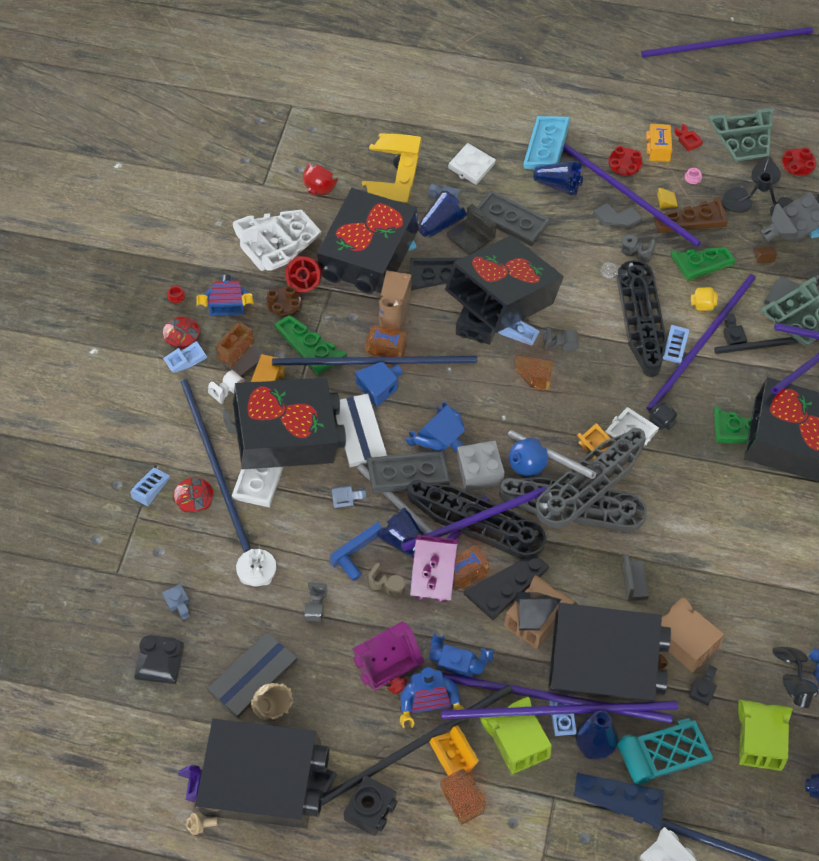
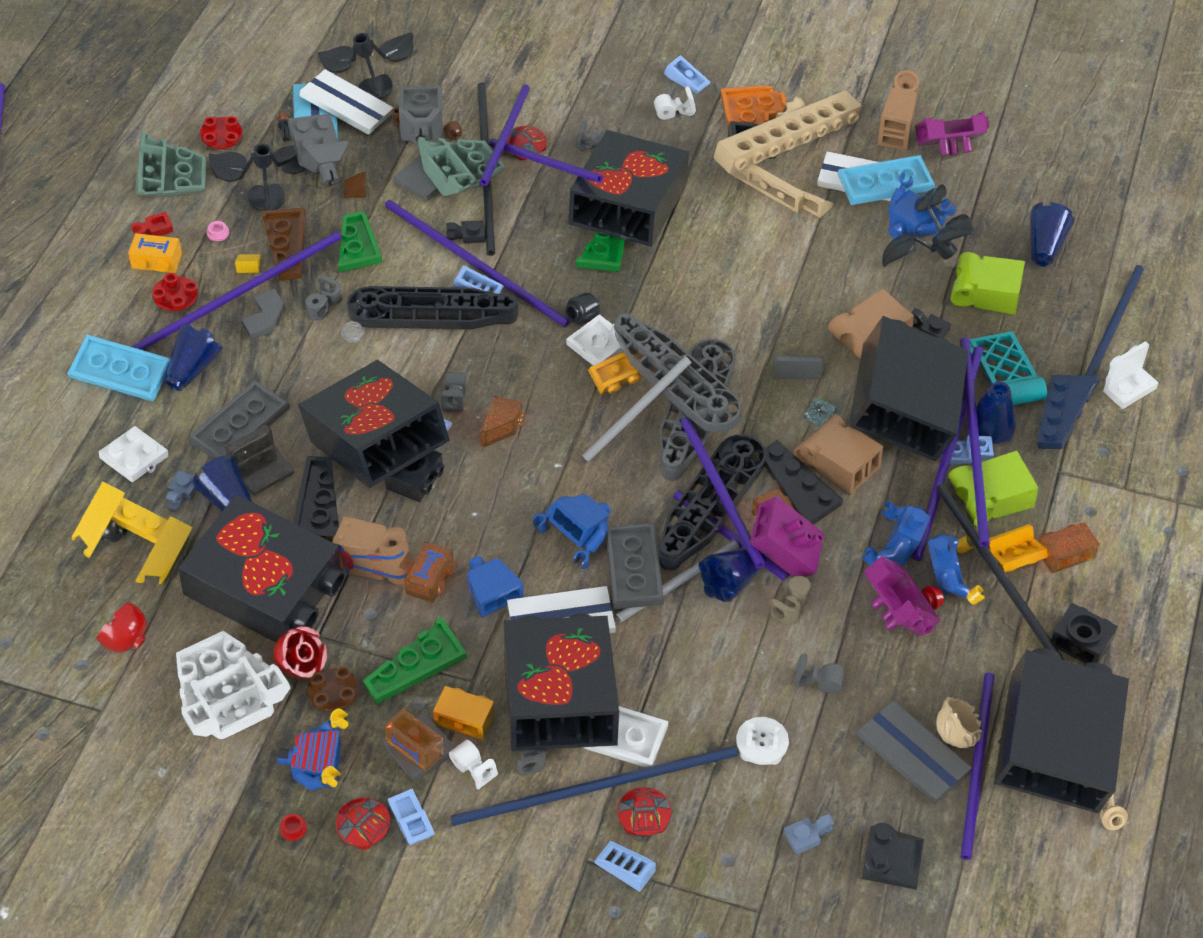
camera: 85 degrees left, 5 degrees down
(193, 773) = (1065, 813): dark purple bracket -> none
(202, 717) = (977, 768): none -> dark purple piece
(342, 555) = (742, 630): blue piece -> none
(344, 495) = (664, 634): sand blue plate -> none
(373, 360) = (457, 626): dark blue piece -> none
(480, 465) = (636, 488): light grey brick -> none
(528, 457) = (633, 435): blue cylinder -> none
(534, 609) = (851, 443): black slope -> none
(587, 597) = (819, 411): none -> clear light blue tile
(705, 299) = (417, 247): yellow head -> none

